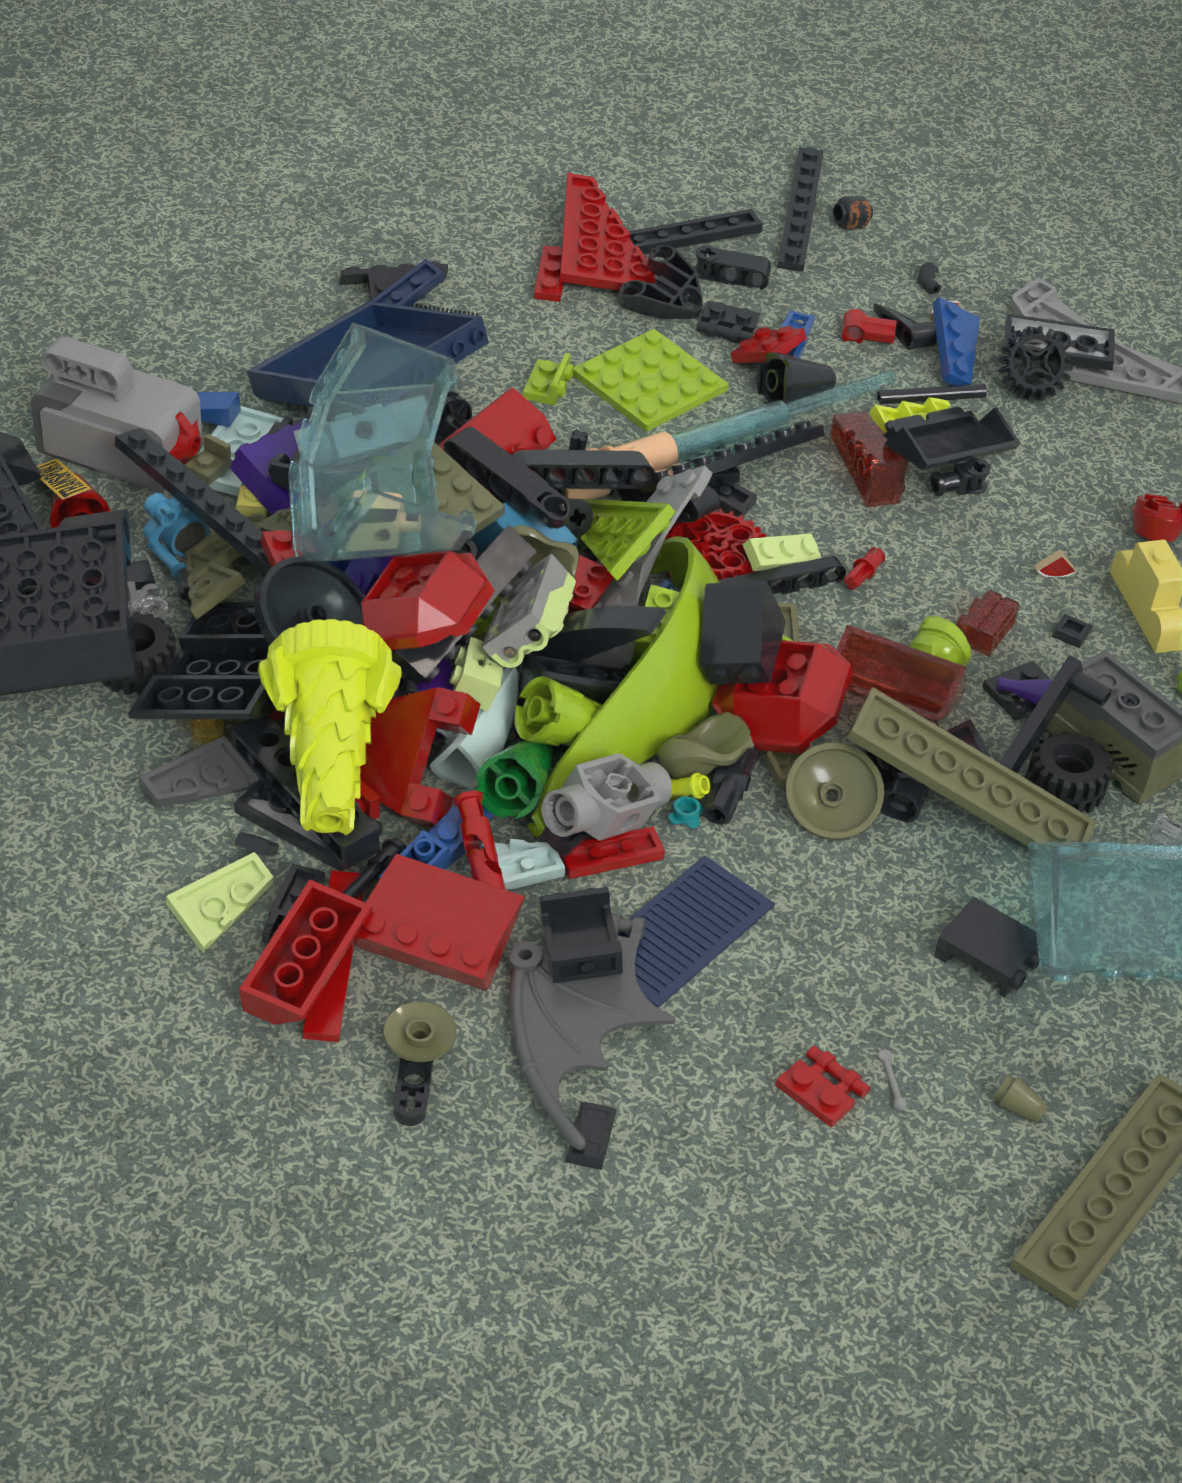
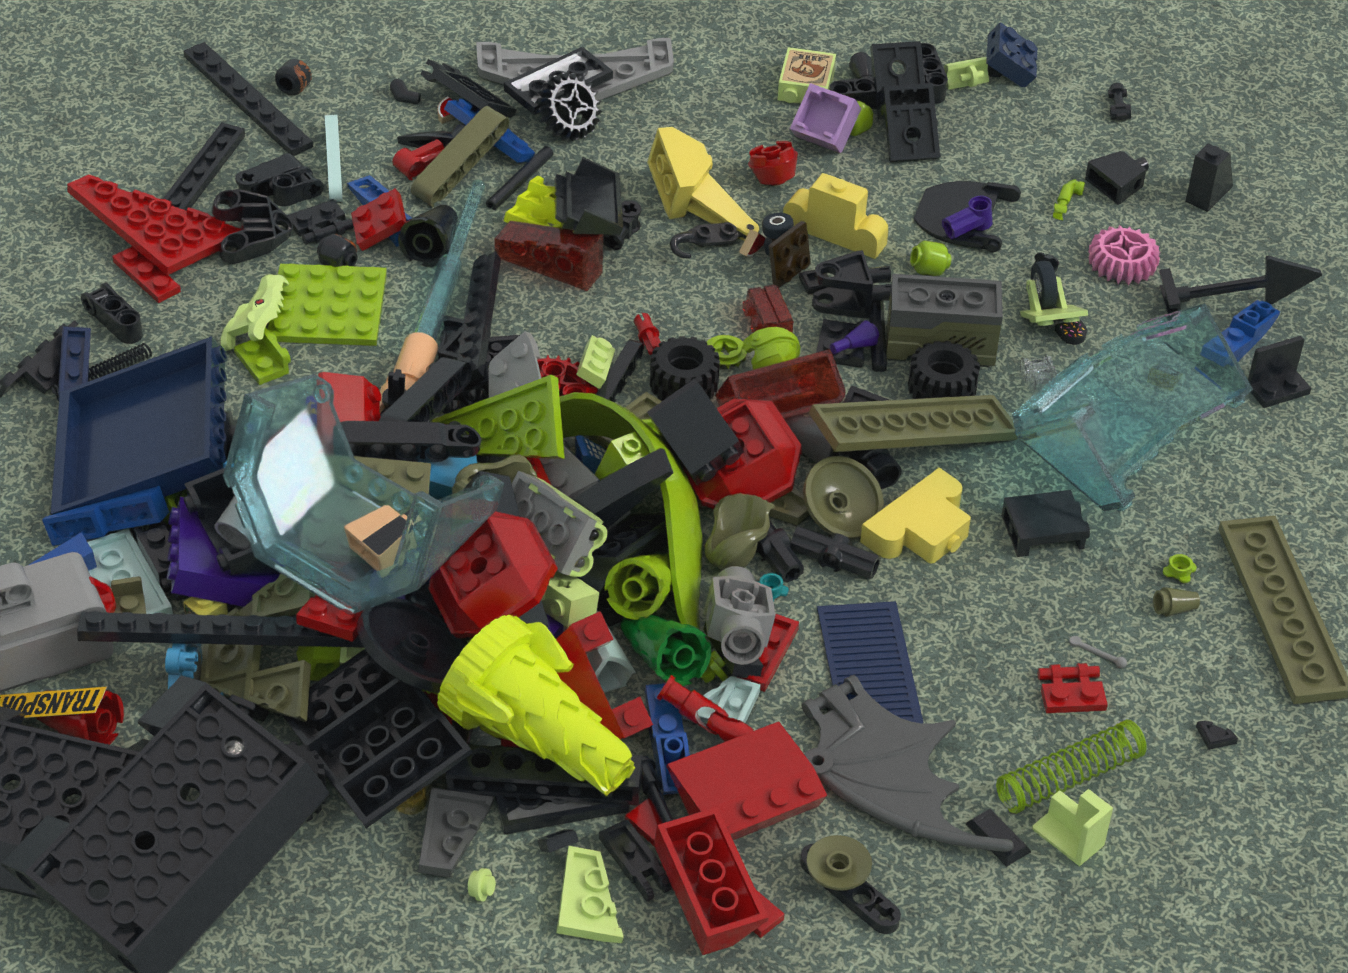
camera: 45 degrees left, 0 degrees up
(164, 827) = (481, 884): none -> yellowish green plate
(272, 396) = (109, 515): none -> blue slope
(487, 282) = (113, 313): none -> black piece
(580, 342) = (257, 313): none -> yellowish green animal
(580, 935) = (839, 718): black panel -> none
(653, 1182) = (1076, 828): none -> yellowish green panel
(696, 786) = (759, 564): neon yellow pin -> none
(707, 347) = (337, 251): none -> black head
(740, 285) = (294, 186): none -> black piece
(774, 828) = (835, 552): none -> black piece
(803, 282) = (333, 158): none -> light aqua beam
(805, 1152) = (1121, 742): none -> lime piece
(846, 601) = (680, 362): none -> black tyre
(883, 861) = (921, 519): none -> light yellow brick
(895, 342) = (460, 156): none -> olive beam
(897, 1227) = (1215, 736): none -> black tile
(906, 616) = (732, 345): none -> lime gear
(977, 305) = (466, 88): none -> black tile
(1053, 490) = (684, 185): none -> light yellow slope
(1067, 678) = (906, 309): black piece -> none
(1067, 1071) = (1180, 567): none -> lime plate
(1068, 585) = (785, 246): none -> dark brown plate
(1084, 638) = (851, 286): none -> black piece

